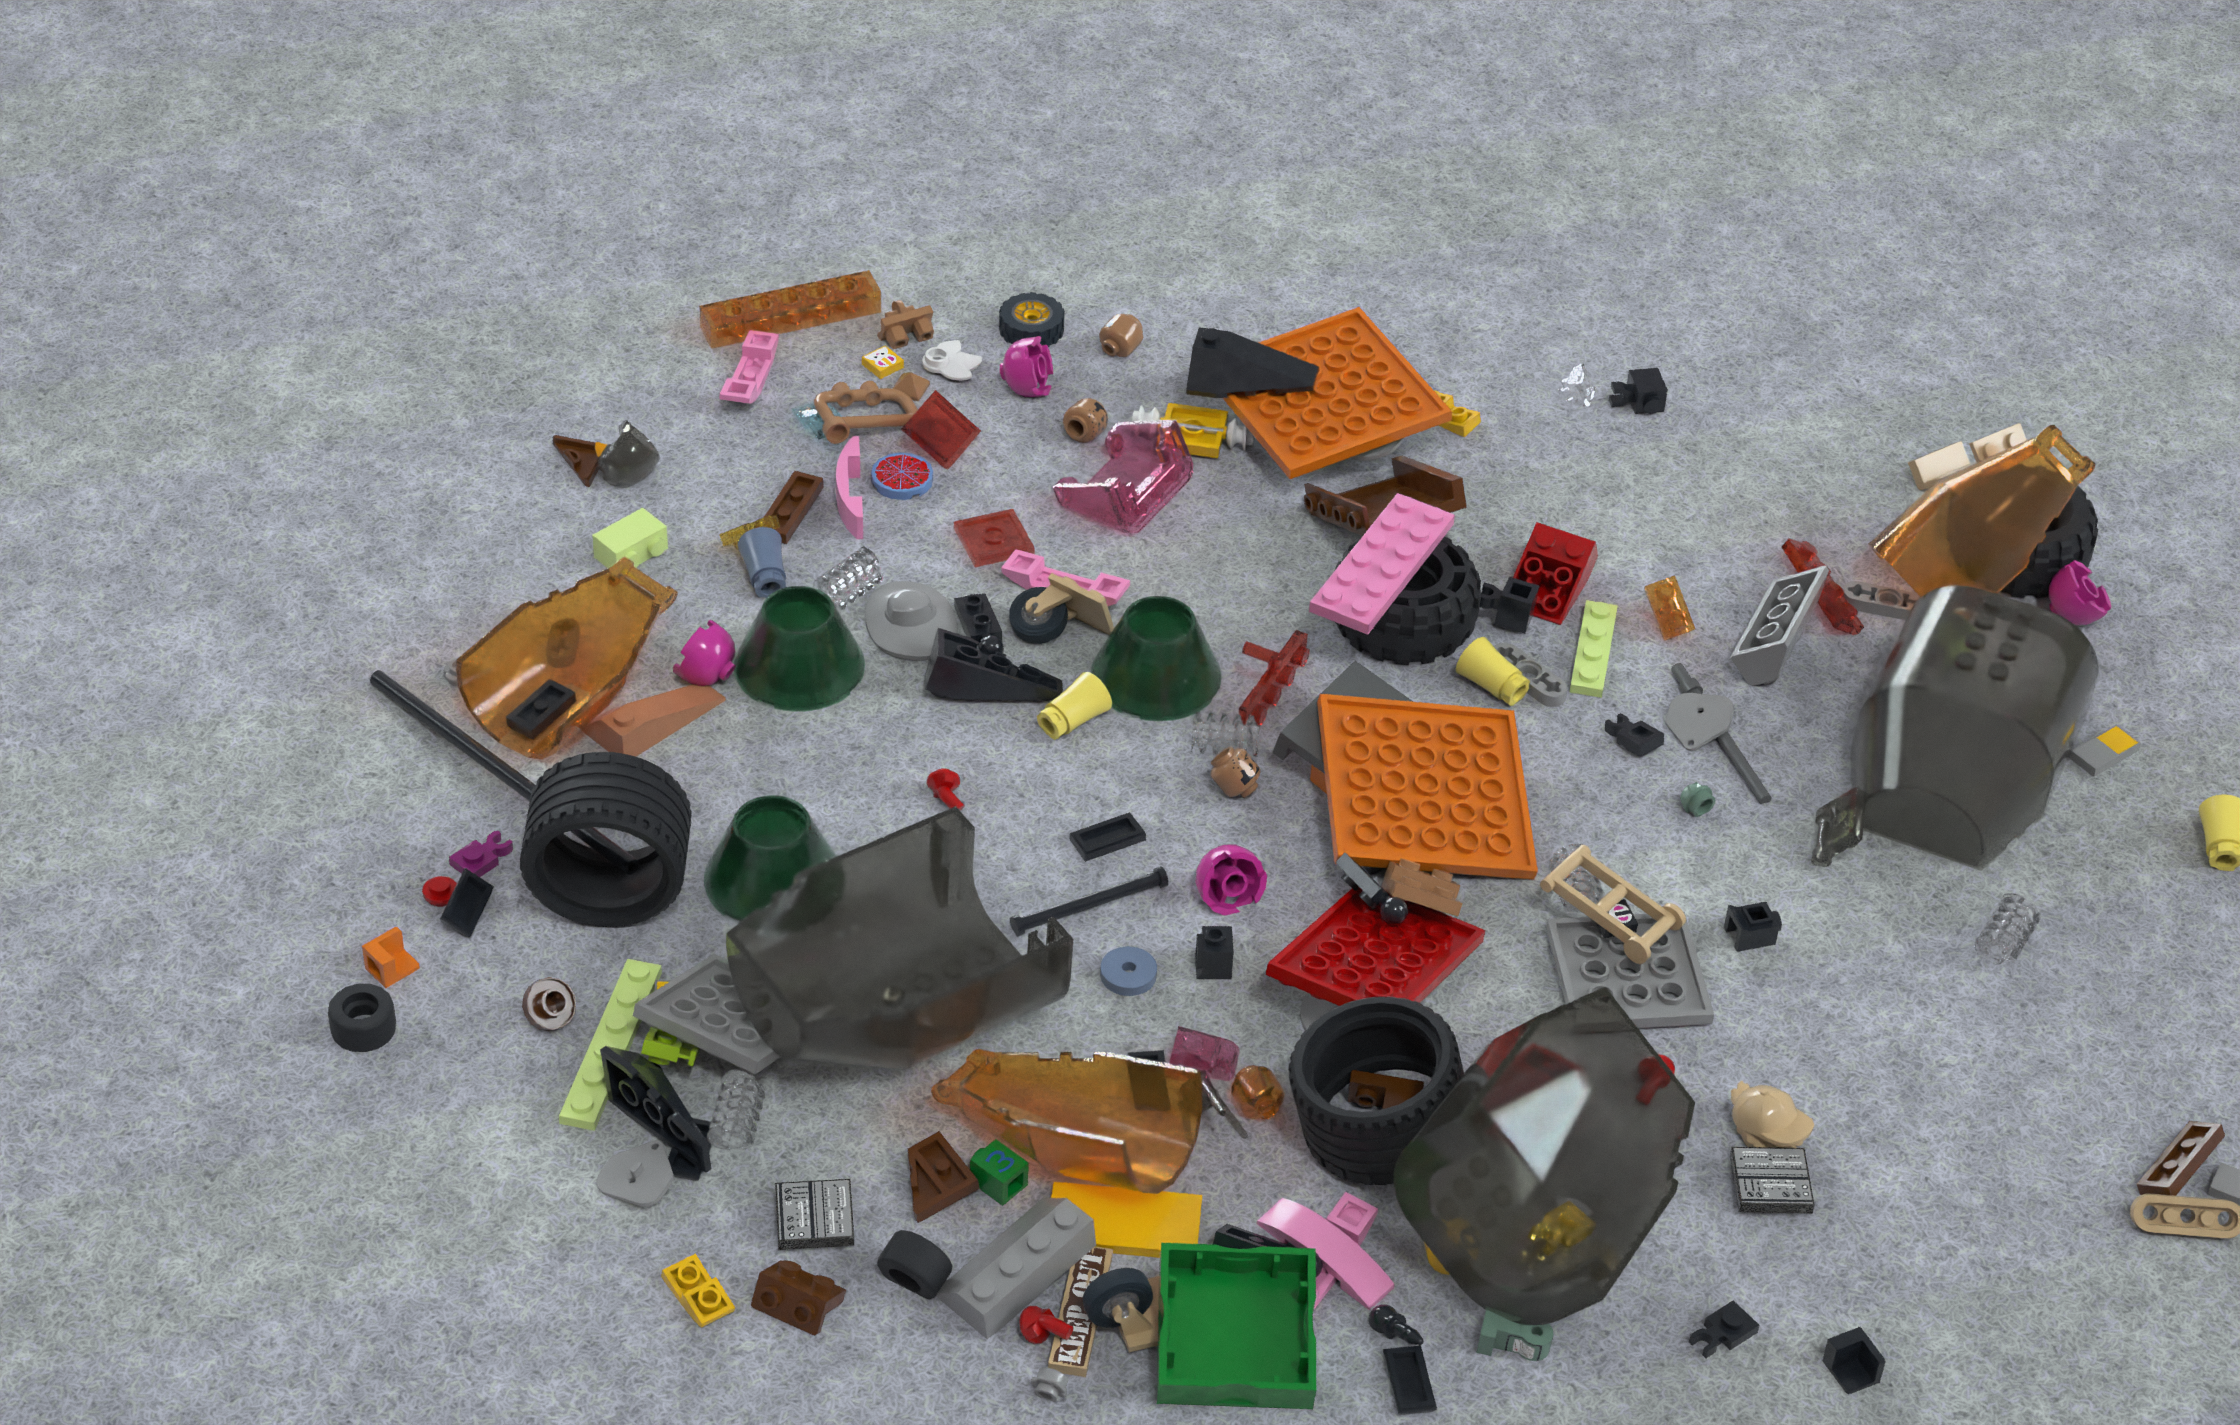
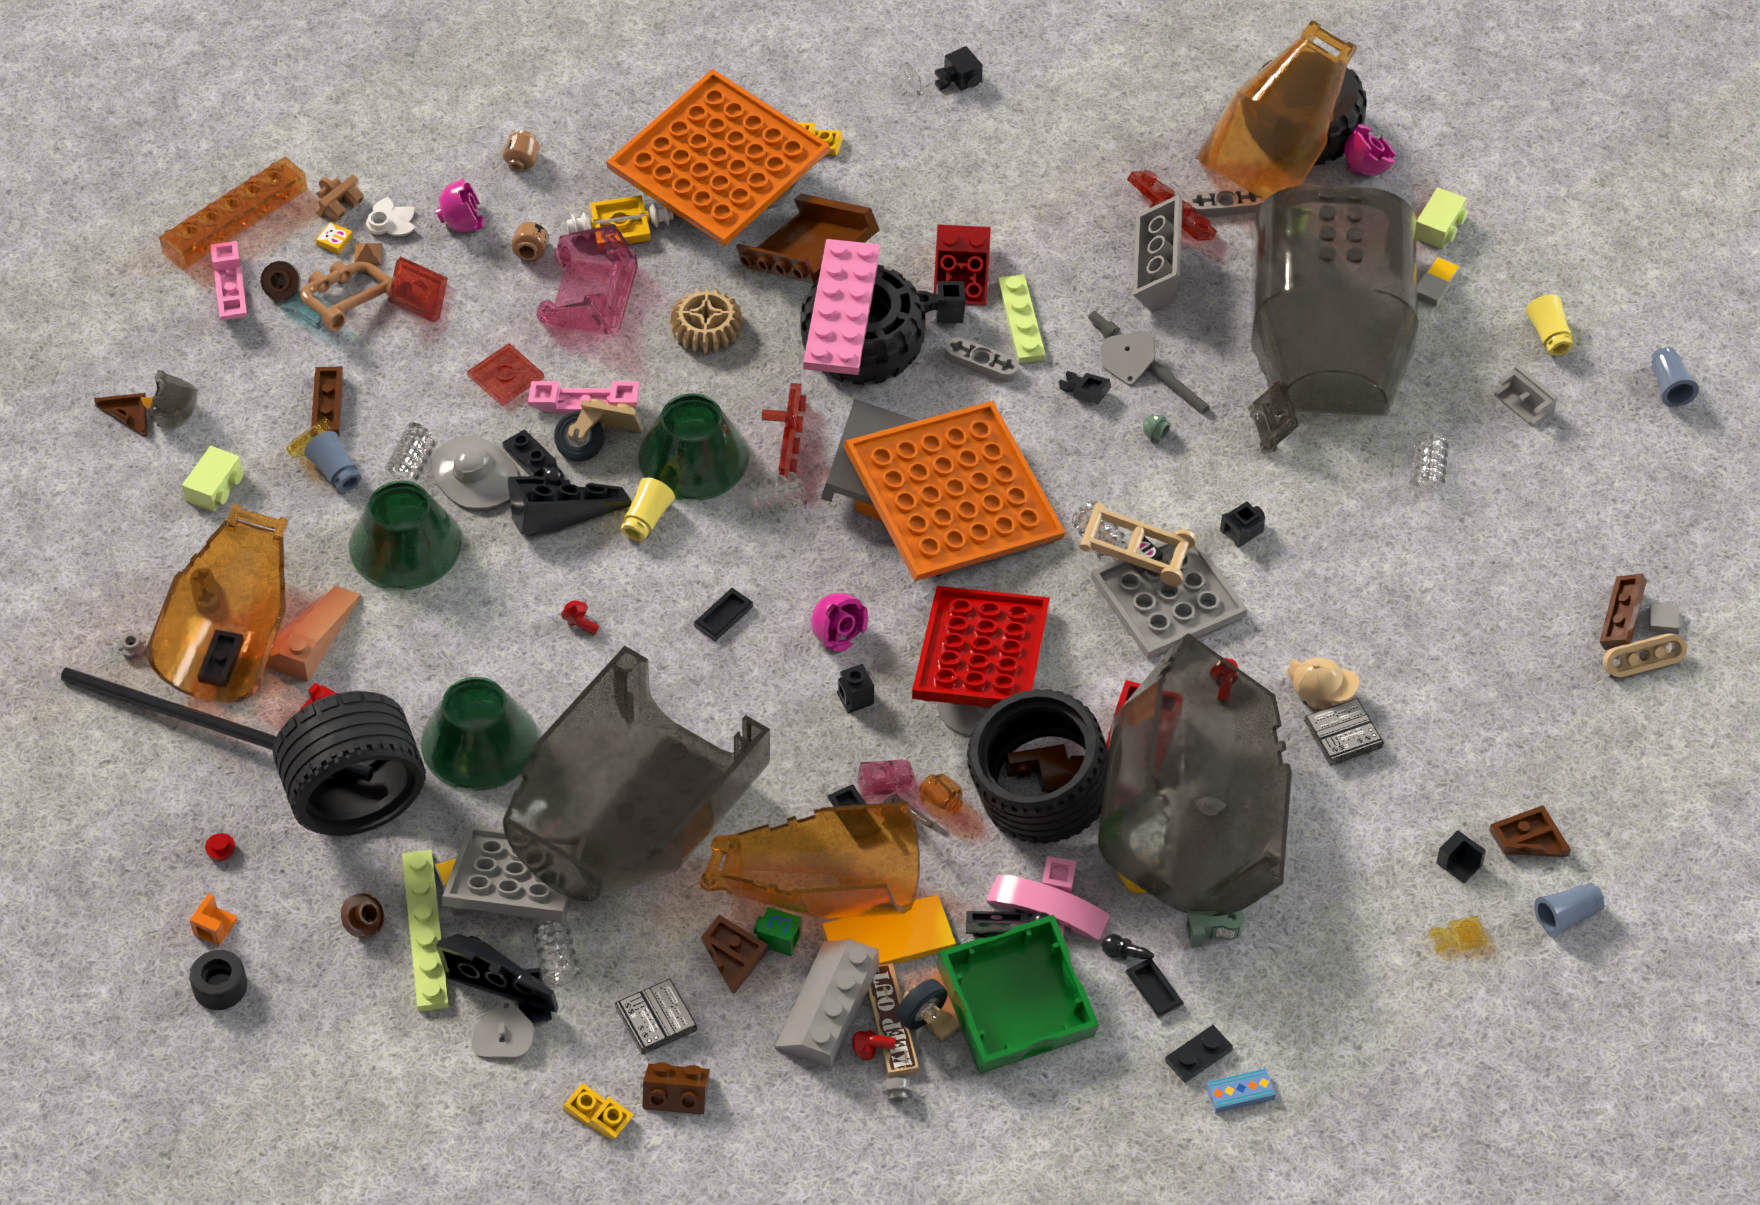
camera: 20 degrees left, 10 degrees up
(466, 903) = (248, 850): black tile -> none
(481, 857) = (235, 807): magenta plate -> none
(664, 1047) = (478, 923): lime plate -> none
(707, 656) = (334, 565): dark pink cylinder -> none
(802, 381) = (280, 280): none -> reddish brown plate
(849, 508) = (380, 388): bright pink slope -> none
(902, 475) = (403, 341): tile -> none
(915, 1263) = (754, 1030): black tyre -> none
(1031, 316) = (439, 159): black wheel -> none
(1128, 983) = (790, 715): sand blue piece -> none
(1158, 877) = (692, 715): black bar -> none
(1233, 363) = (640, 157): black wedge -> none
(1235, 772) = (799, 525): medium nougat head -> none
(1236, 547) = (690, 324): none -> tan gear
(1392, 909) = (979, 607): black plate -> none
(1422, 888) = (990, 579): medium nougat plate -> none
(1492, 671) = (956, 368): light yellow plant -> none
(1562, 1225) = (1215, 827): clear yellow plate -> none
(1669, 608) = (1067, 265): clear orange hips -> none
(1726, 1326) = (1360, 860): black plate -> none
(1952, 458) = (1226, 66): tan panel -> none
(1953, 1365) = (1530, 834): none -> reddish brown wing
(2137, 687) = (1440, 218): none -> yellowish green brick
(2160, 897) = (1526, 396): none -> light grey hinge

